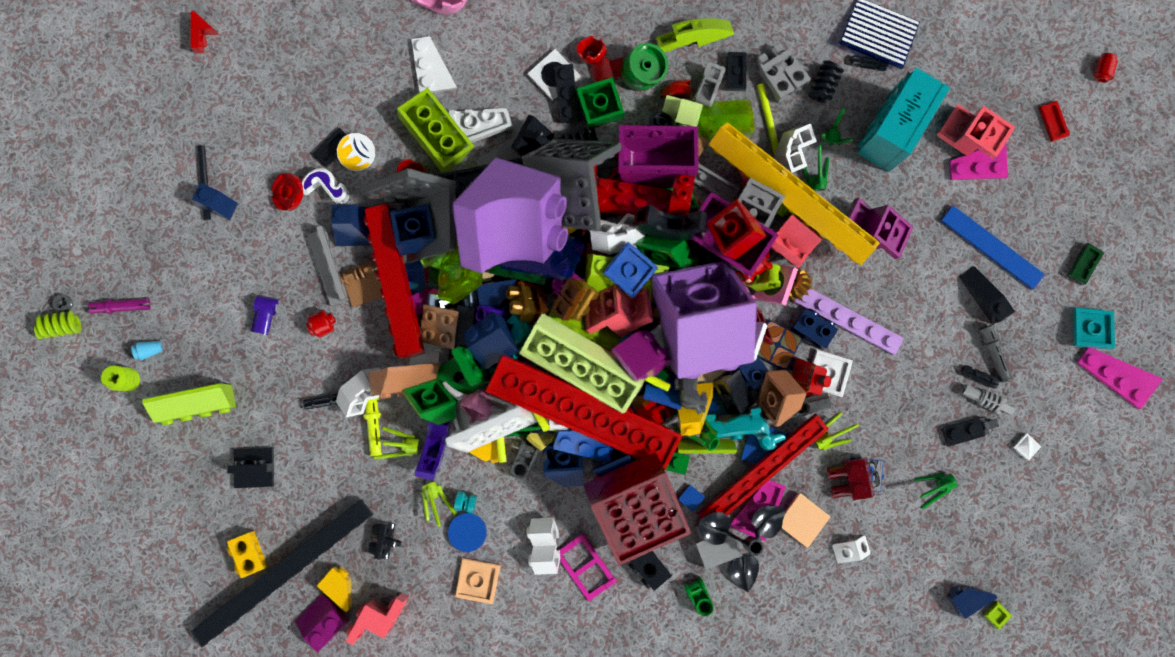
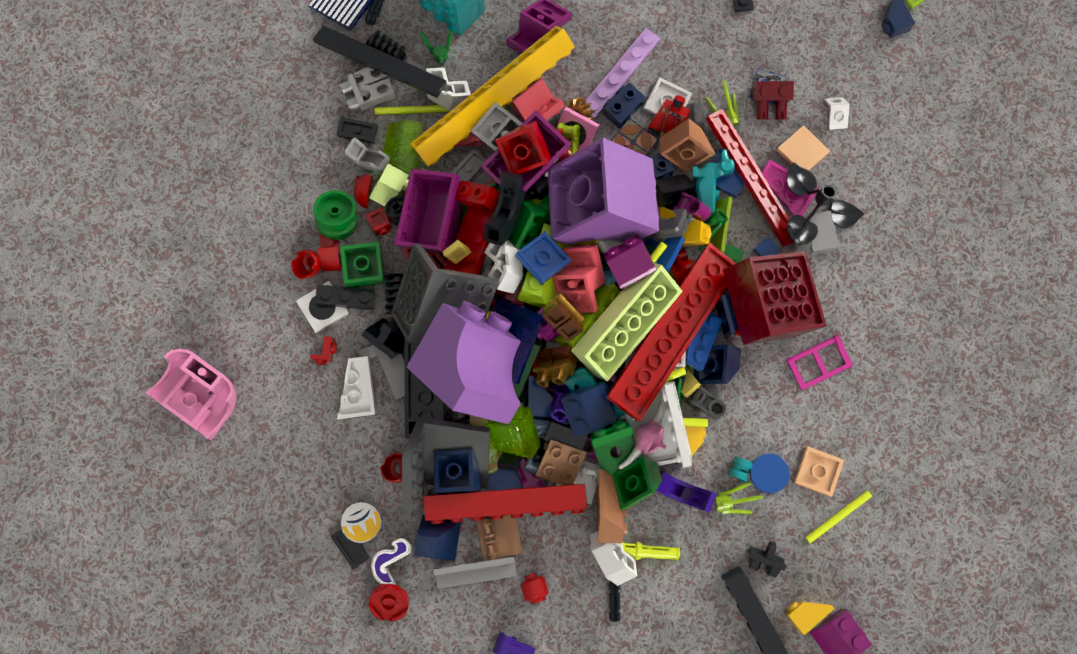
camera: 80 degrees left, 5 degrees down
(376, 618) = (844, 577): coral bracket -> none
(409, 445) = (676, 518): lime plant -> none
(430, 67) = (289, 430): white wing -> none
(435, 130) = (356, 435): lime slope -> none
(437, 606) = (838, 516): none -> neon yellow bar
(514, 89) = (329, 348): none -> red bracket
(543, 537) = (801, 398): white brick -> none
(621, 186) = (456, 252): none -> light yellow tile
(644, 111) = (379, 222): none -> red bracket
(655, 578) = (838, 294): black brick -> none
(696, 30) = (309, 157): lime slope -> none
(699, 595) = (860, 259): green piece -> none
(716, 413) = (693, 206): none -> magenta piece
(809, 77) = (380, 61): none -> black tile
(819, 180) = (482, 75): green plant -> none
(944, 484) = (788, 18): green plant -> none

